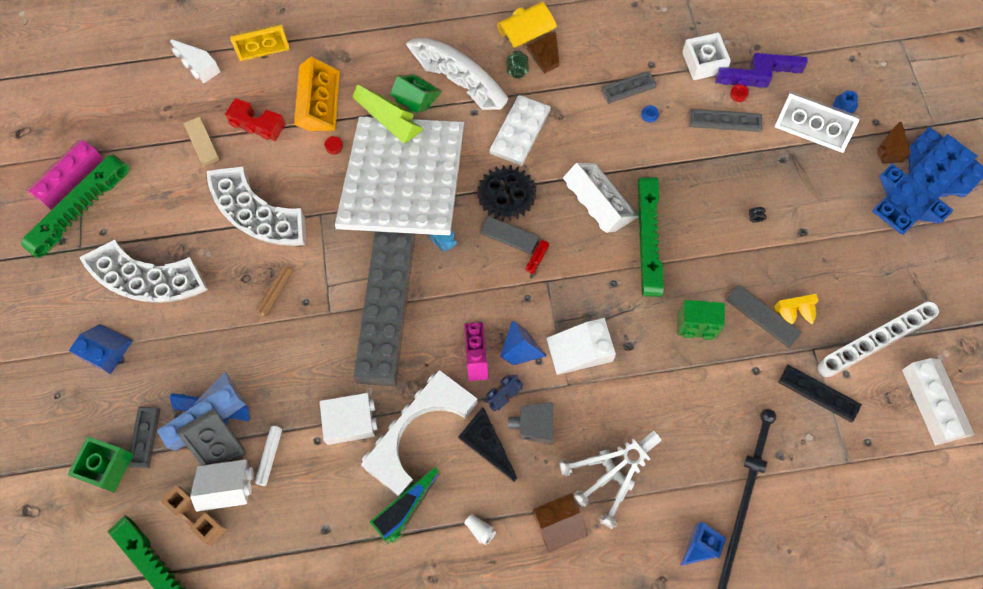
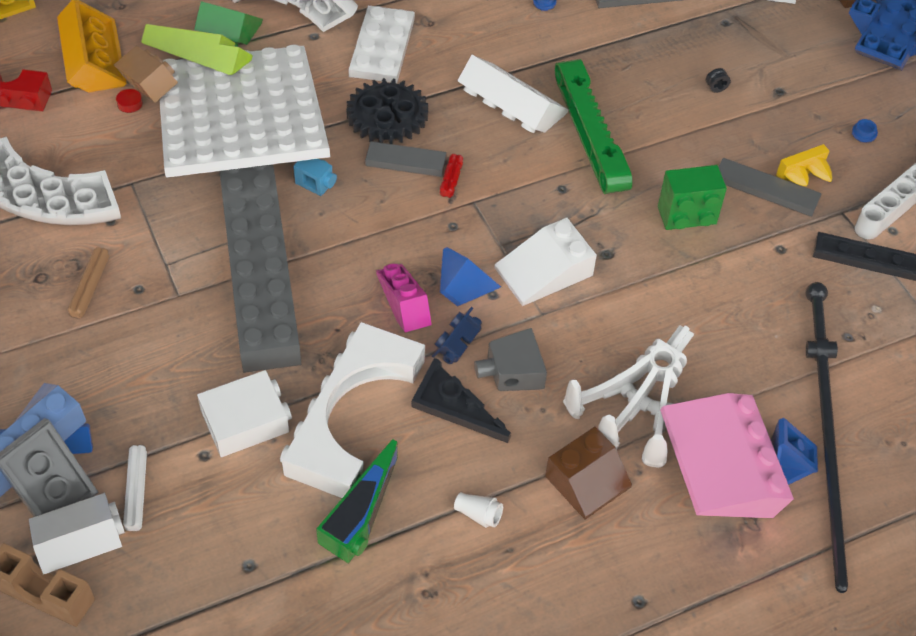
camera: 20 degrees left, 15 degrees down
(346, 131) = (147, 73): none -> medium nougat brick
(655, 537) = (727, 457): none -> bright pink slope
(855, 283) = (865, 130): none -> blue plate

